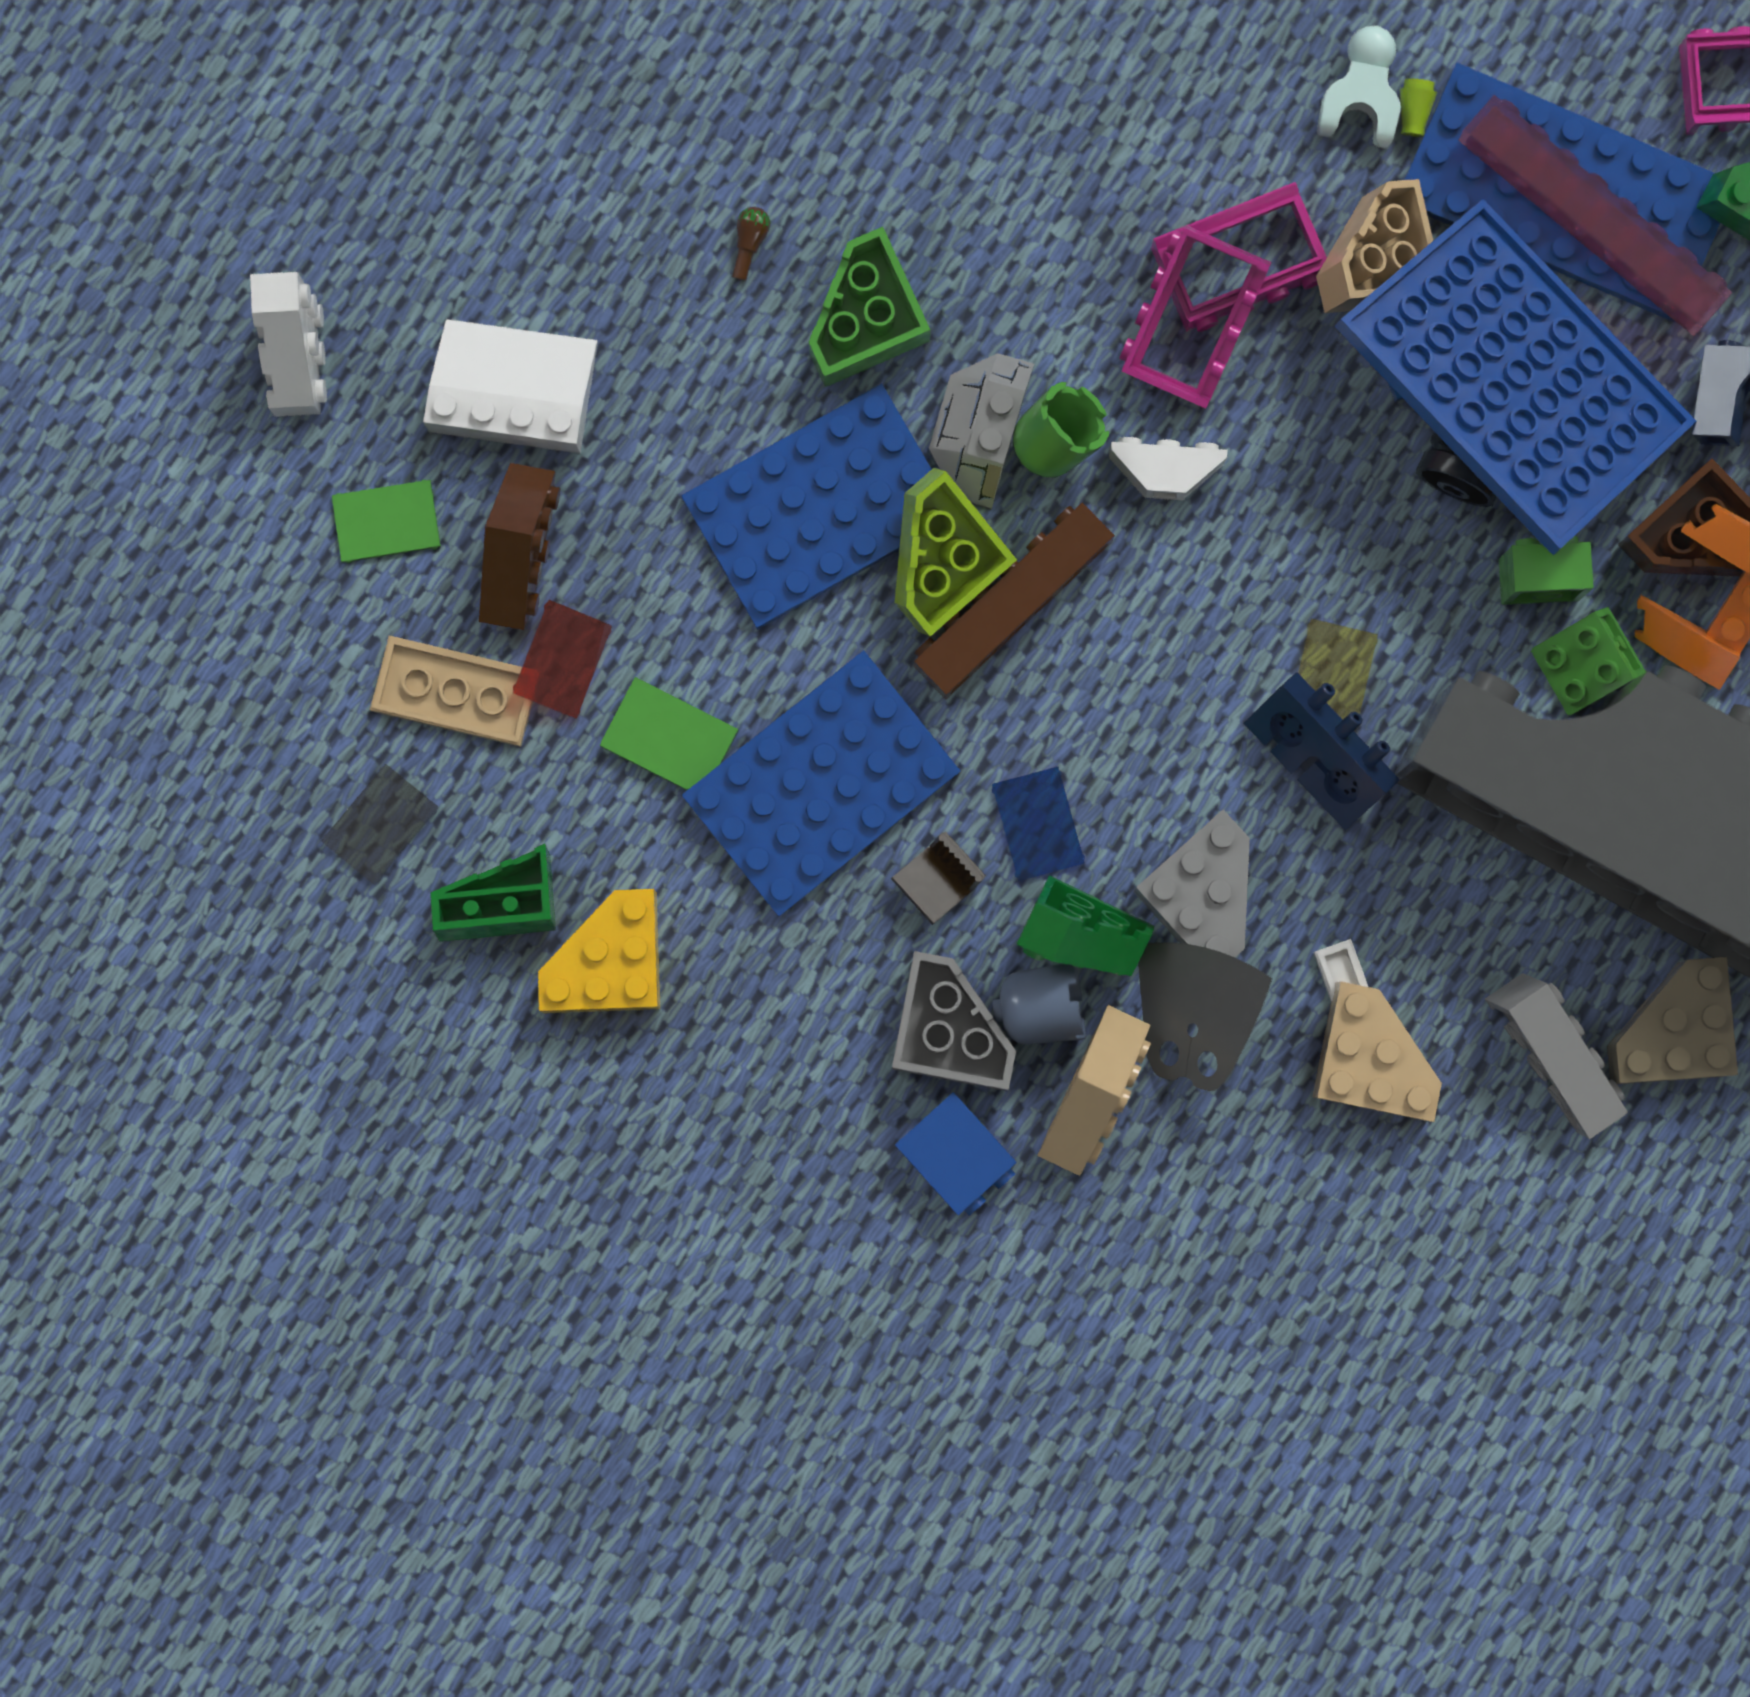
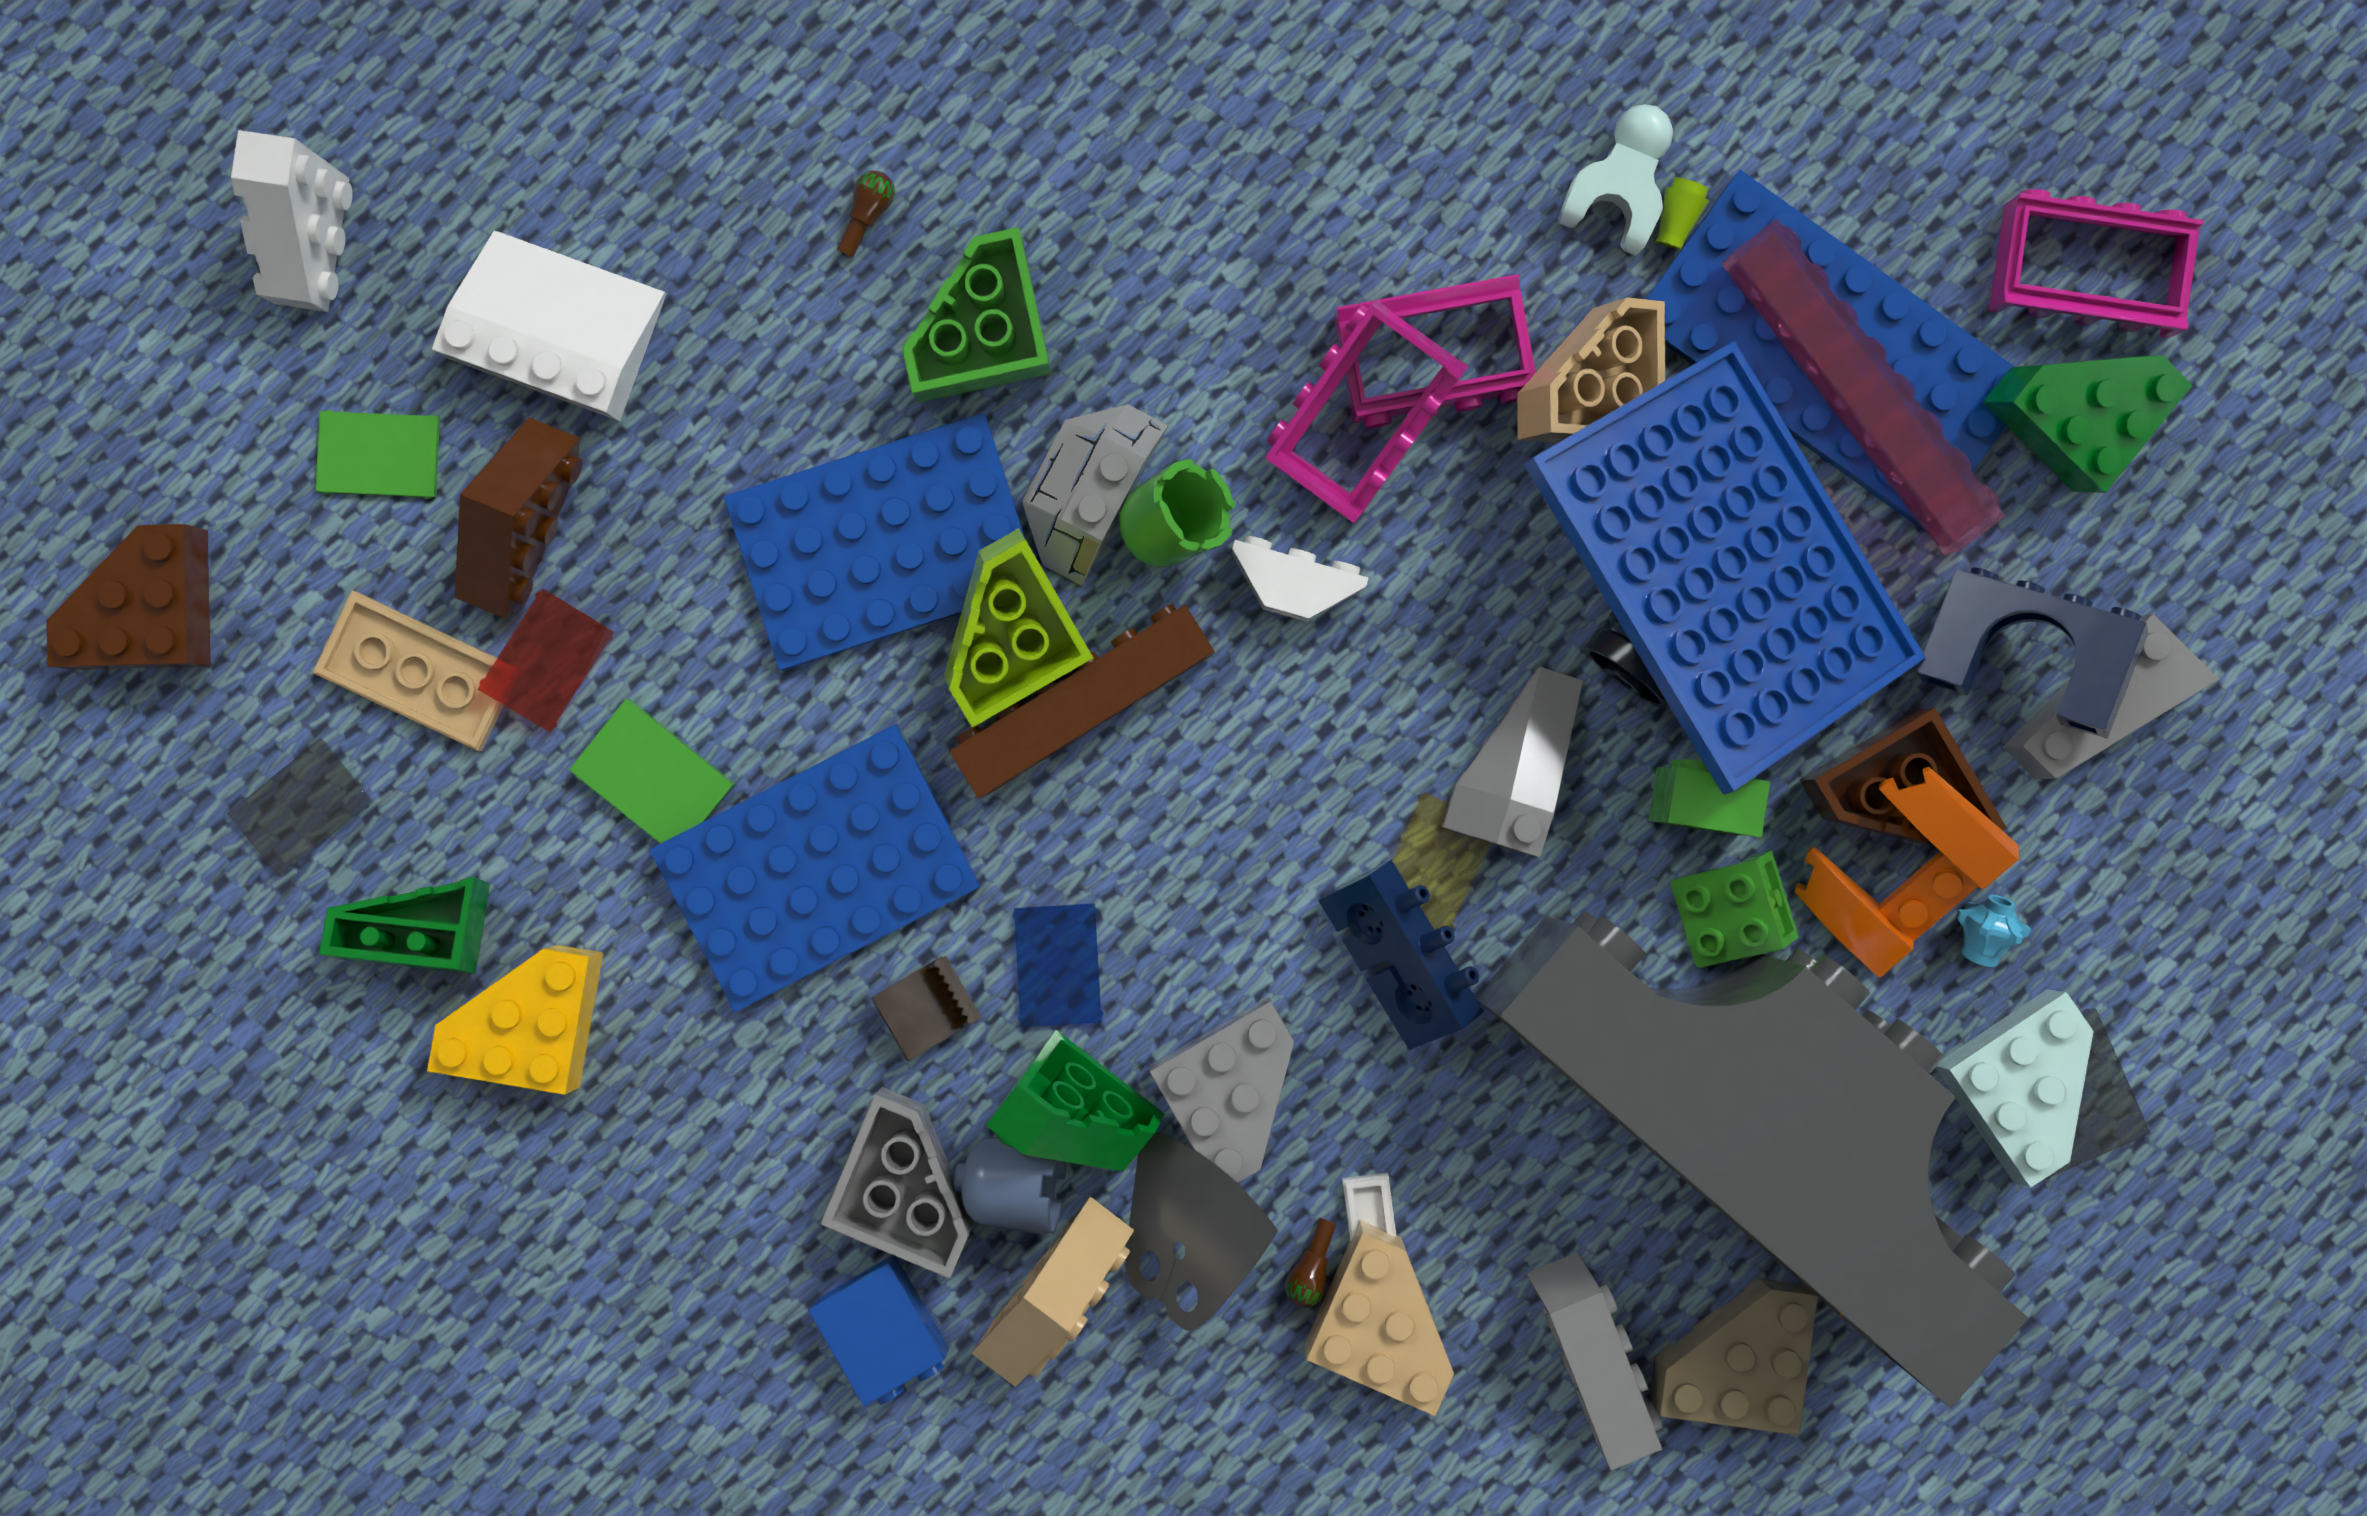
camera: 10 degrees right, 5 degrees up
(218, 684) = (139, 606): none -> reddish brown brick
(1303, 1040) = (1307, 1279): none -> reddish brown piece
(1385, 582) = (1517, 775): none -> light grey wedge

